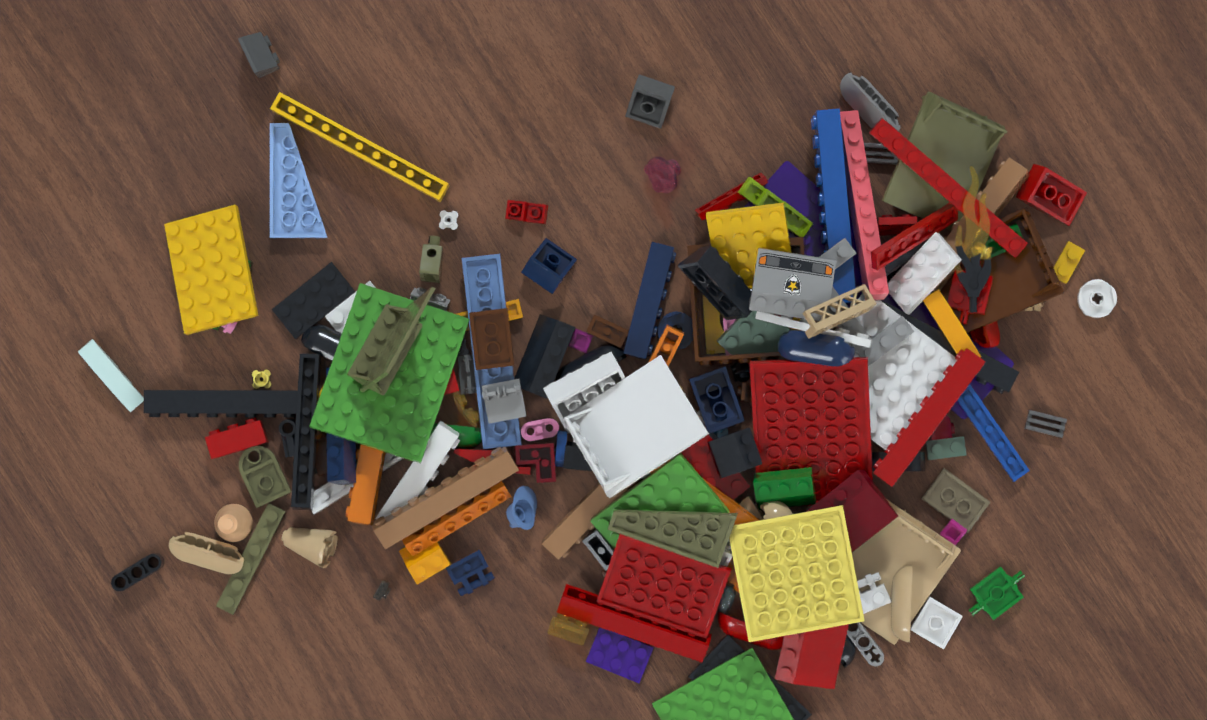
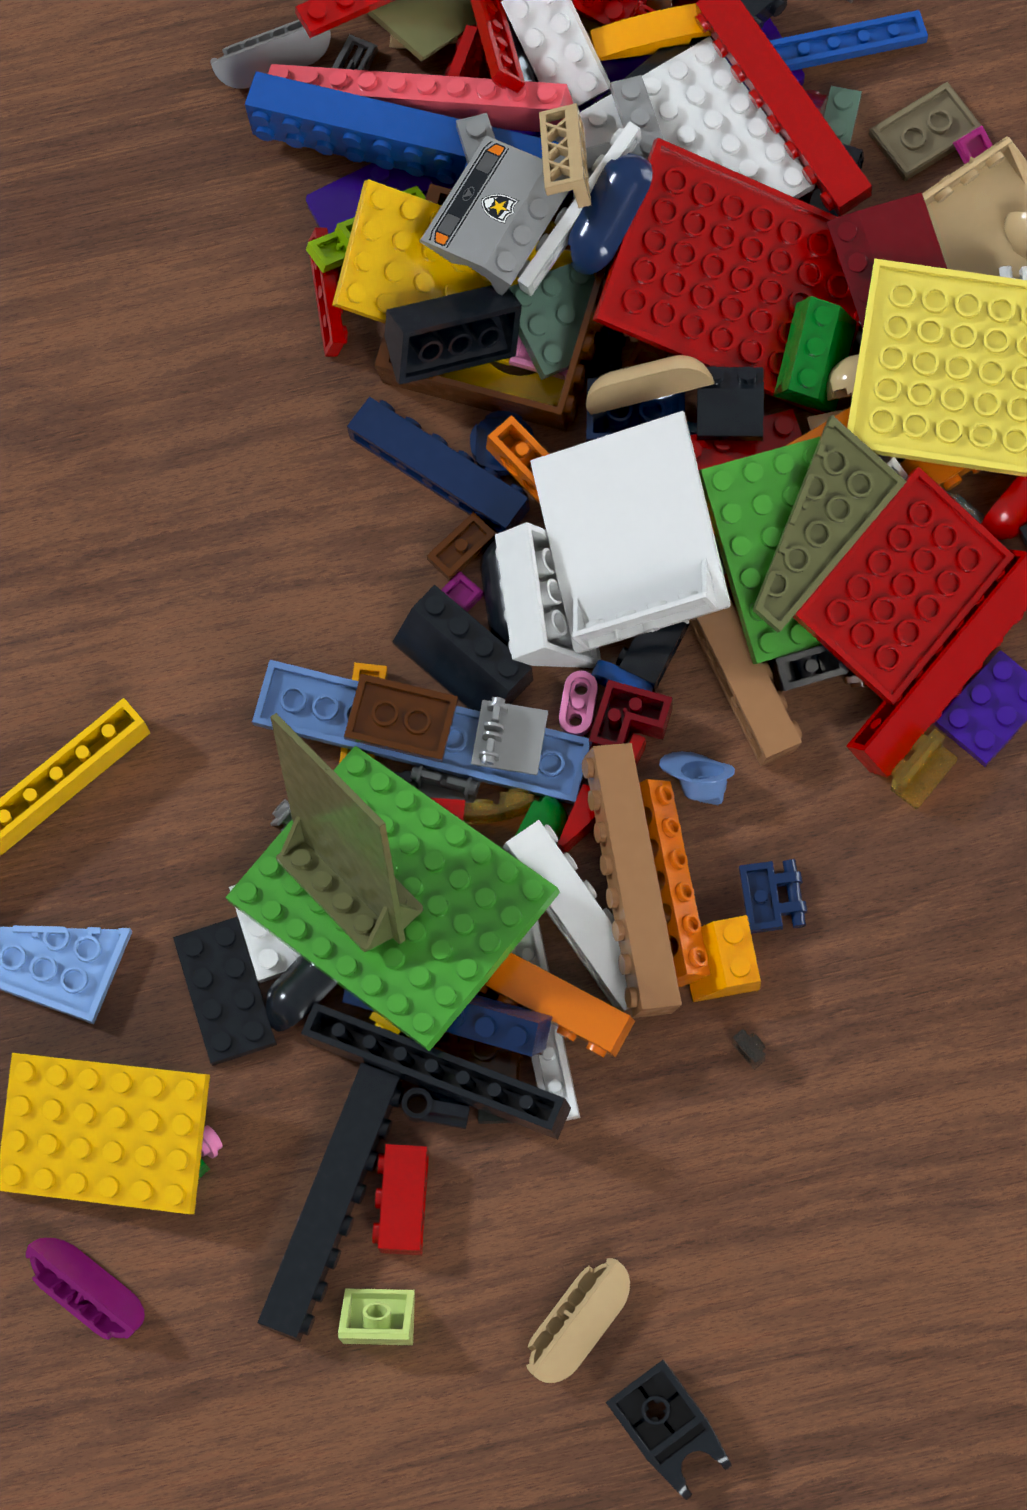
camera: 55 degrees left, 15 degrees down
(111, 375) = (210, 1374): light aqua slope -> none
(129, 576) = (555, 1439): black beam -> none
(130, 293) = (85, 1288): none -> magenta brick
(166, 623) = (668, 1439): none -> black brick
(171, 449) = (377, 1317): none -> yellowish green slope
(233, 522) = (542, 1260): light nougat cone -> none
(252, 556) = (605, 1242): olive plate -> none
(263, 478) = (485, 1176): olive plate -> none
(266, 380) = (315, 1114): light yellow plate -> none
(311, 544) = (626, 1137): tan cone -> none
(431, 266) = (239, 774): olive torso -> none
(453, 219) = (187, 737): white plate -> none
(526, 212) = (222, 606): red slope -> none
(549, 265) = (322, 599): dark blue slope -> none
(650, 101) = (129, 361): dark grey slope -> none
(663, 174) = (249, 377): clear pink plate -> none
(729, 403) = (647, 382): none -> tan brick

